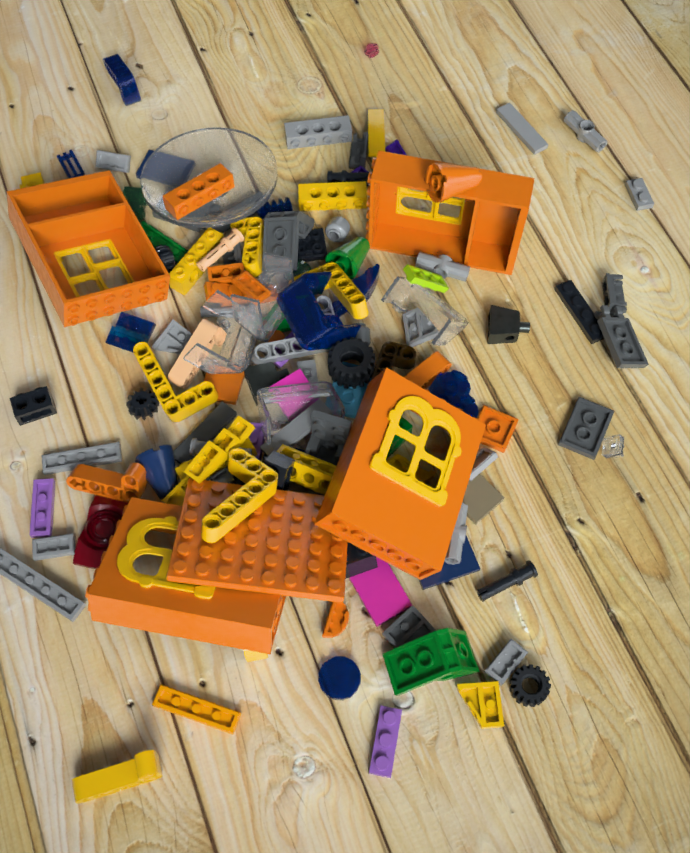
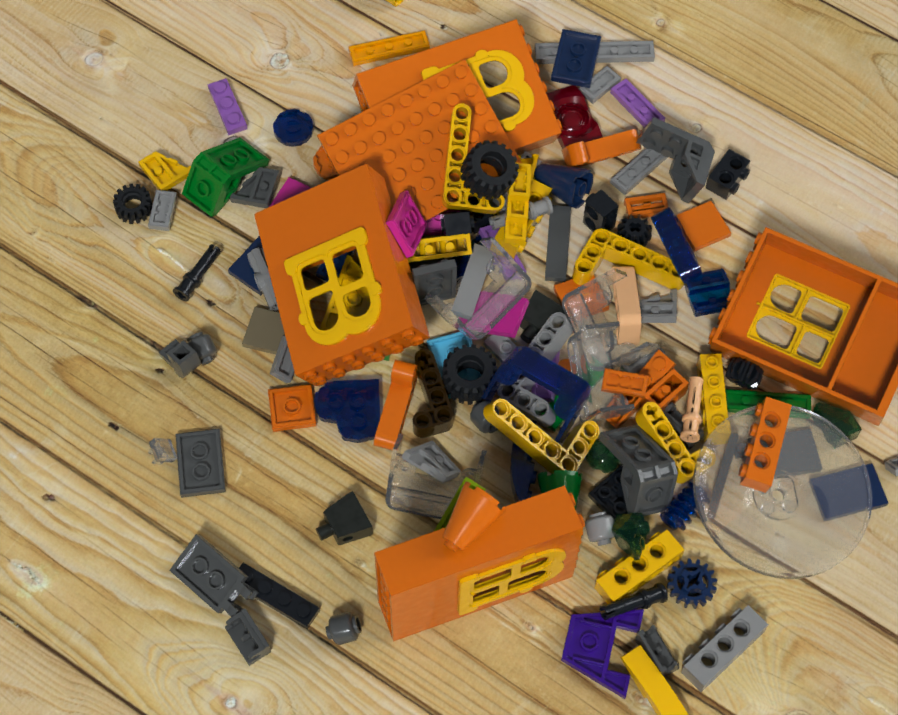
camera: 145 degrees right, 0 degrees up
(52, 578) = (576, 58): none -> dark blue tile
(57, 421) = (684, 149): none -> dark grey bracket
(88, 383) = (703, 226): none -> orange tile
(126, 362) = (676, 244): none -> clear blue beam
(127, 429) = (648, 209): none -> orange tile
(157, 425) = (600, 211): none -> black brick
(228, 477) = (478, 180): none -> black tyre
(307, 171) = (686, 574): none -> dark blue gear
(324, 209) = (630, 533): none -> clear green slope
(324, 473) = (406, 224): none -> dark pink tile
(541, 510) = (203, 346): none -> dark grey head
(547, 263) = (343, 628): none -> dark grey head
(561, 506) = (180, 357): none -> dark grey brick

